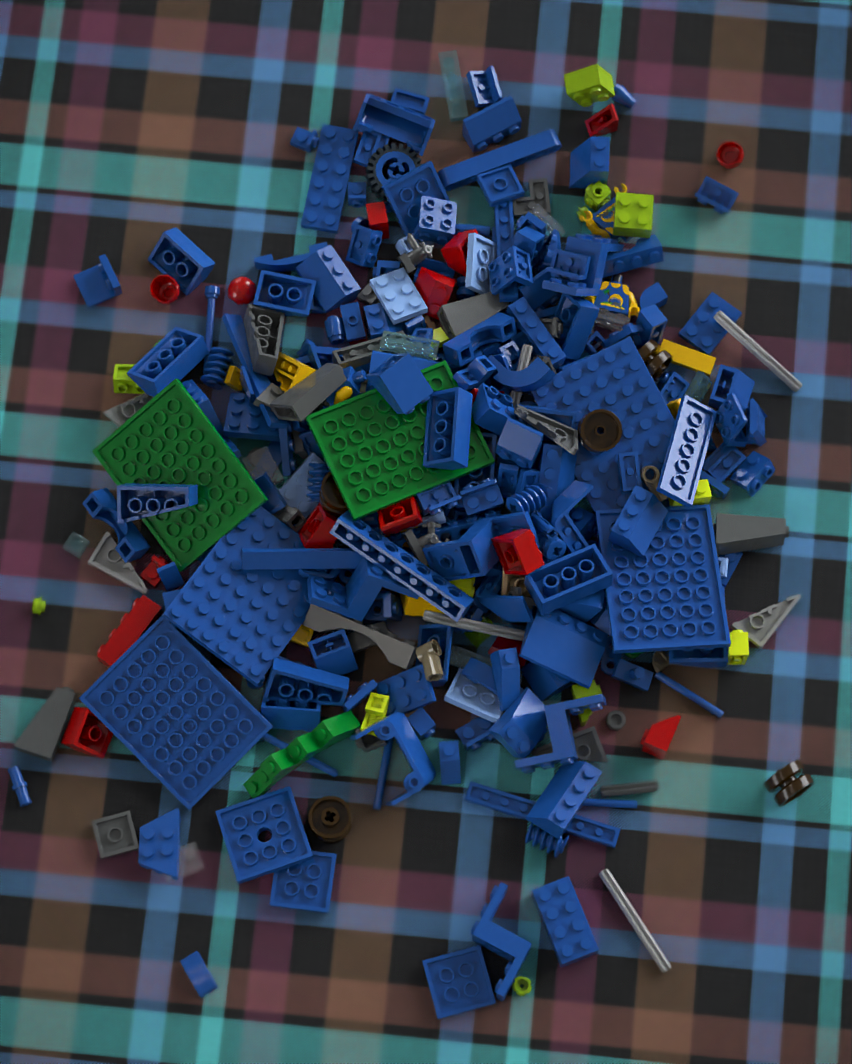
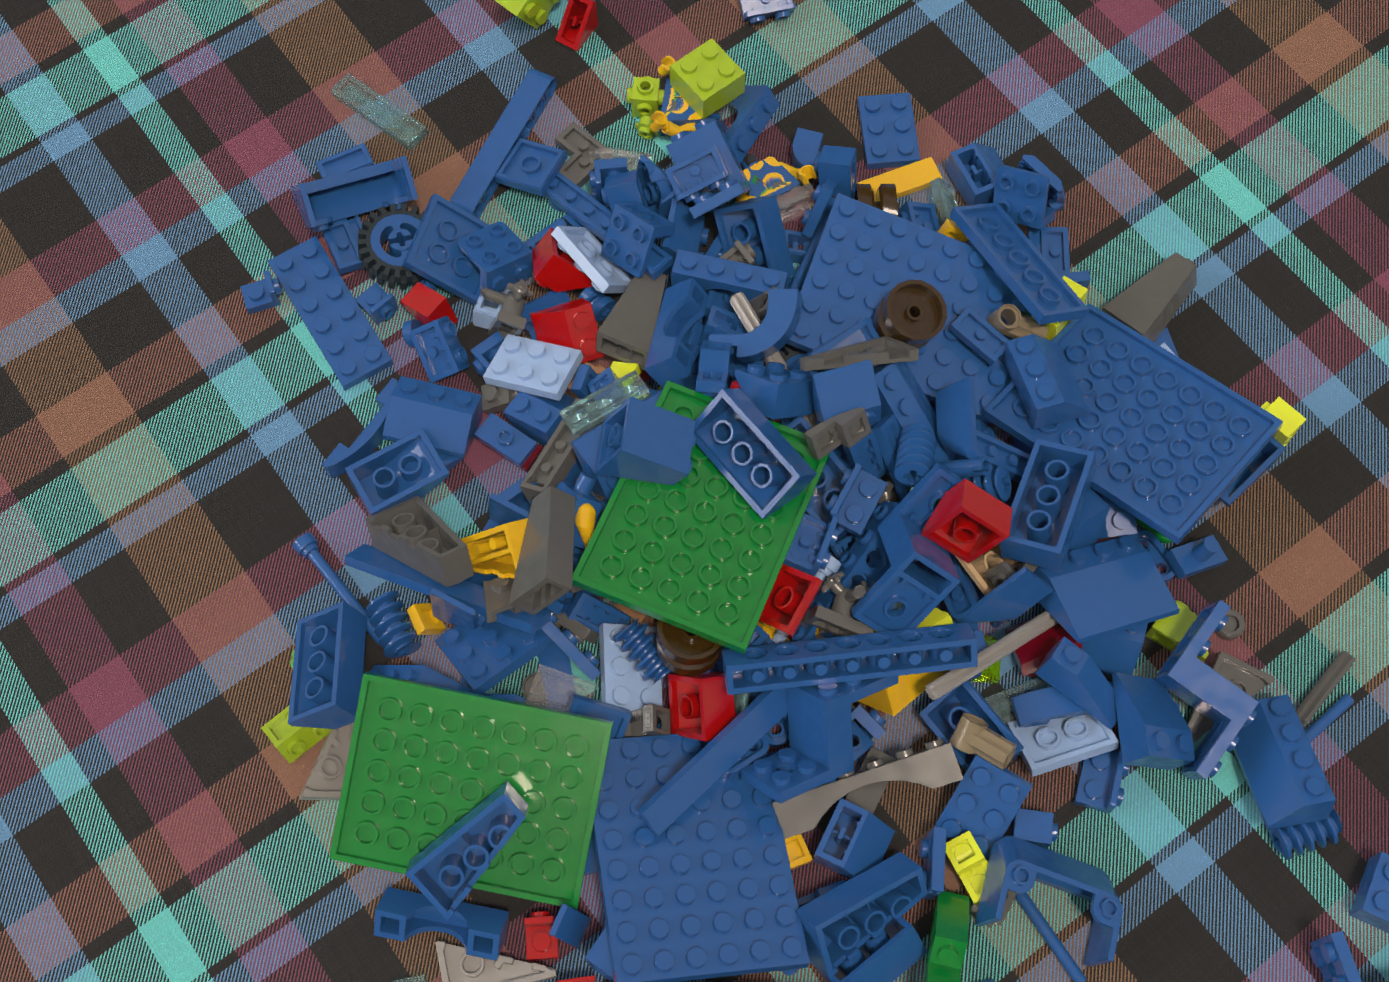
camera: 40 degrees left, 5 degrees down
(98, 283) = (154, 649): blue bracket -> none
(164, 289) = (245, 588): red hair -> none
(181, 260) = (235, 540): blue slope -> none
(242, 290) = (340, 514): red hair -> none
(305, 348) = (479, 515): blue rock -> none
(335, 329) = (492, 467): blue brick -> none
(449, 762) = (1108, 844): blue slope -> none
(484, 87) = (416, 85): blue bracket -> none
(491, 124) = (460, 113): blue slope -> none
(500, 455) = (843, 429): none -> dark grey slope
(520, 808) = (1245, 817): blue tile -> none
(590, 162) = (607, 66): blue slope -> none
(658, 738) = (1305, 596): red slope -> none
(660, 660) = (1211, 519): dark tan tile -> none
(689, 694) = (1271, 525): blue bar -> none
(753, 473) = (1089, 238): blue bracket -> none
(757, 351) = (966, 114): light grey axle -> none
(764, 623) = (1266, 371): light grey wing -> none

